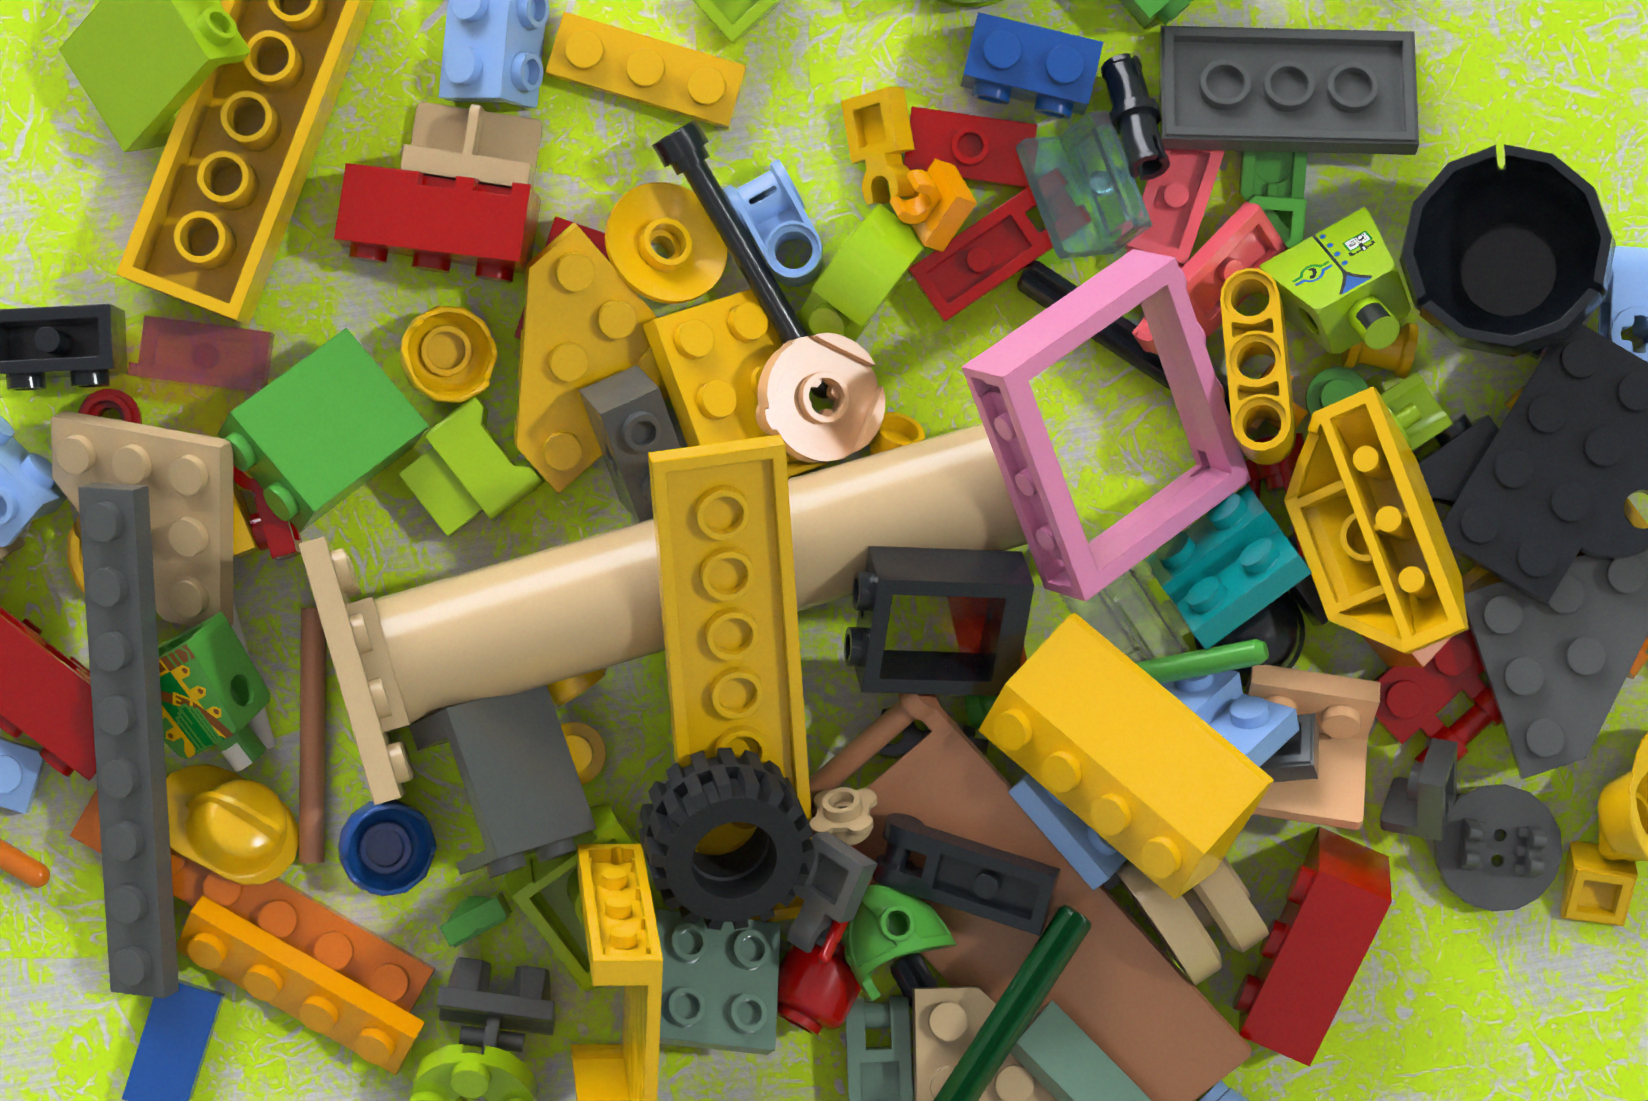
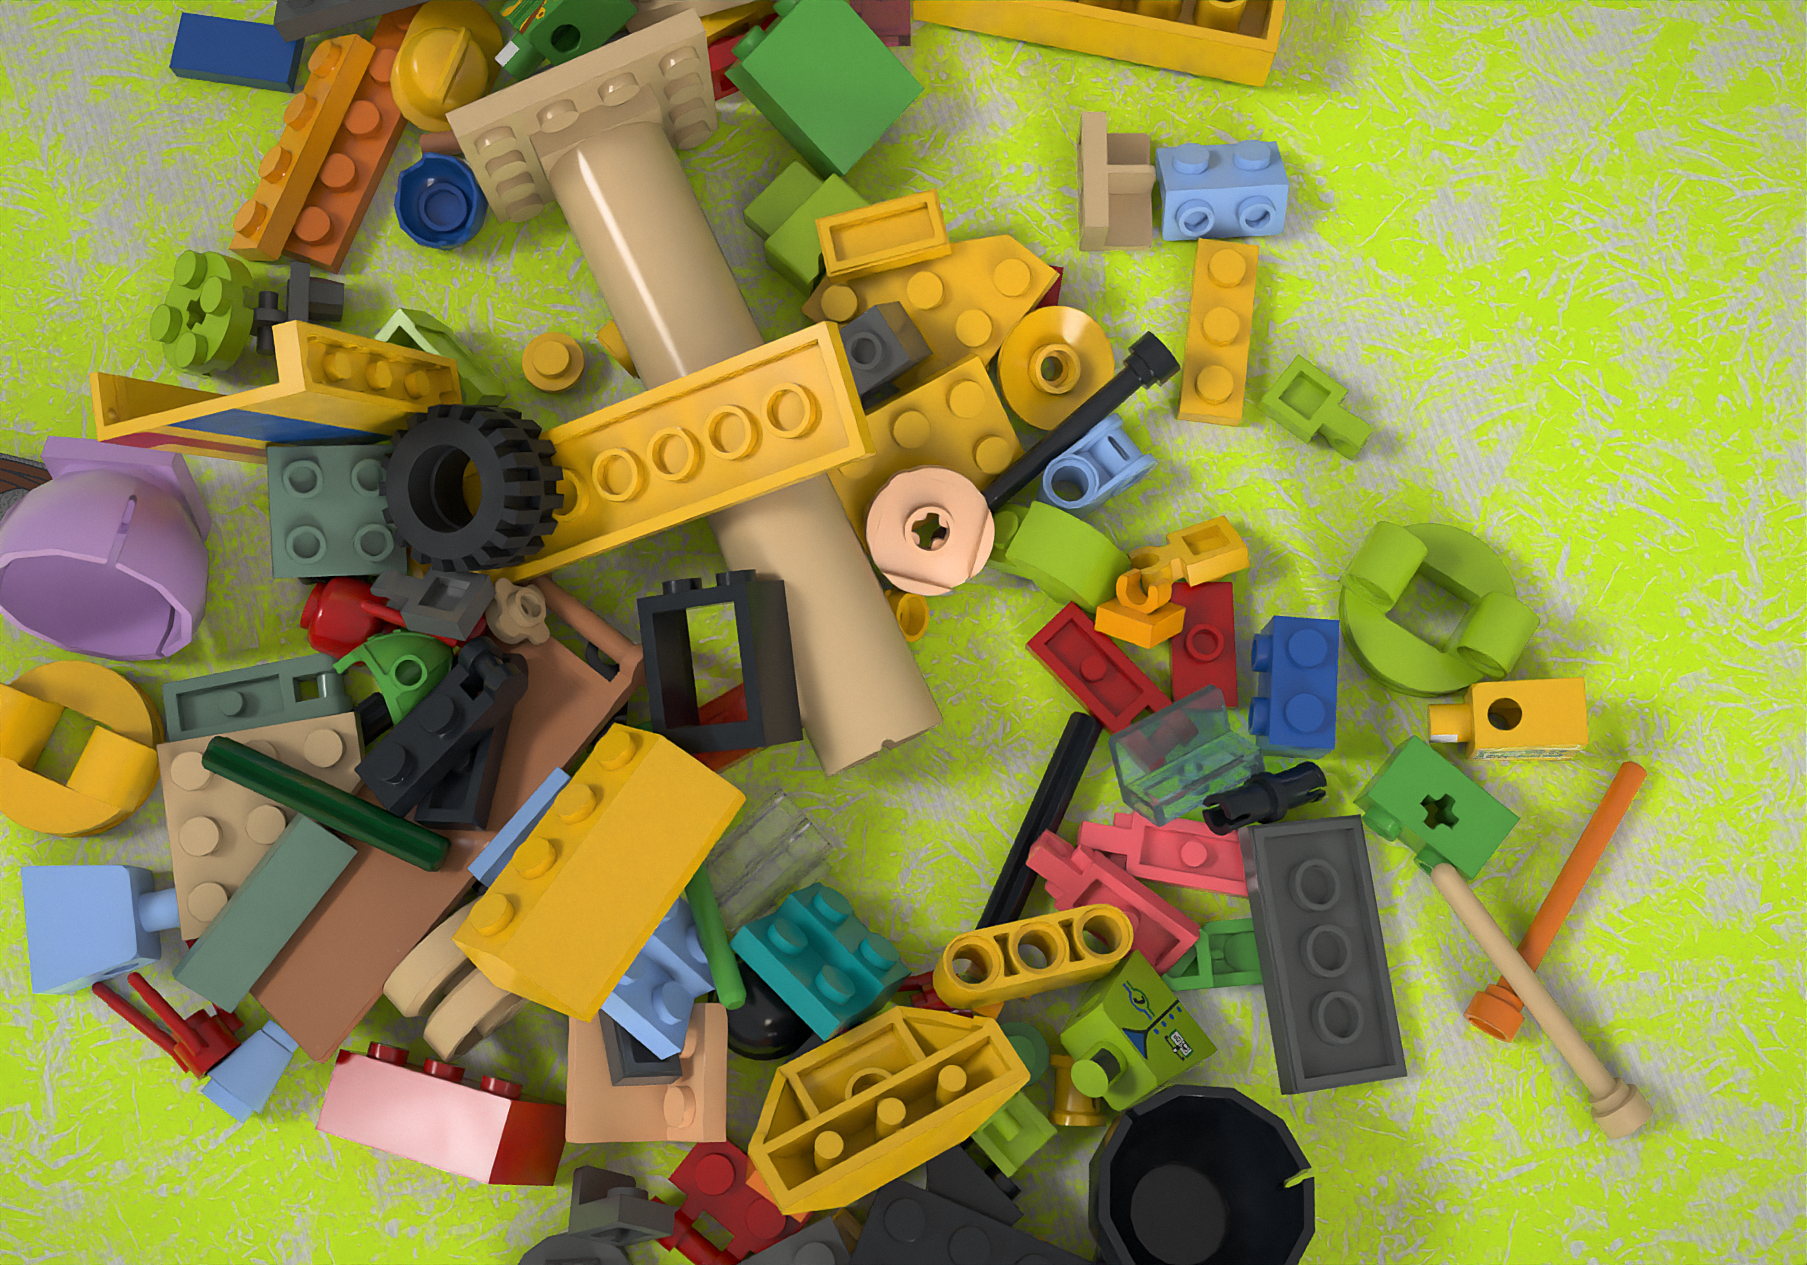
camera: 80 degrees right, 10 degrees down
(437, 221) = (1040, 159): red wedge -> none
(448, 354) = (915, 167): yellow hair -> none
(474, 917) = (379, 286): bright green tile -> none
(508, 395) = (883, 236): none -> yellow tile
(514, 777) = (508, 280): dark grey panel -> none
(954, 898) = (443, 727): none -> black plate
(1026, 454) = (939, 683): bright pink window -> none

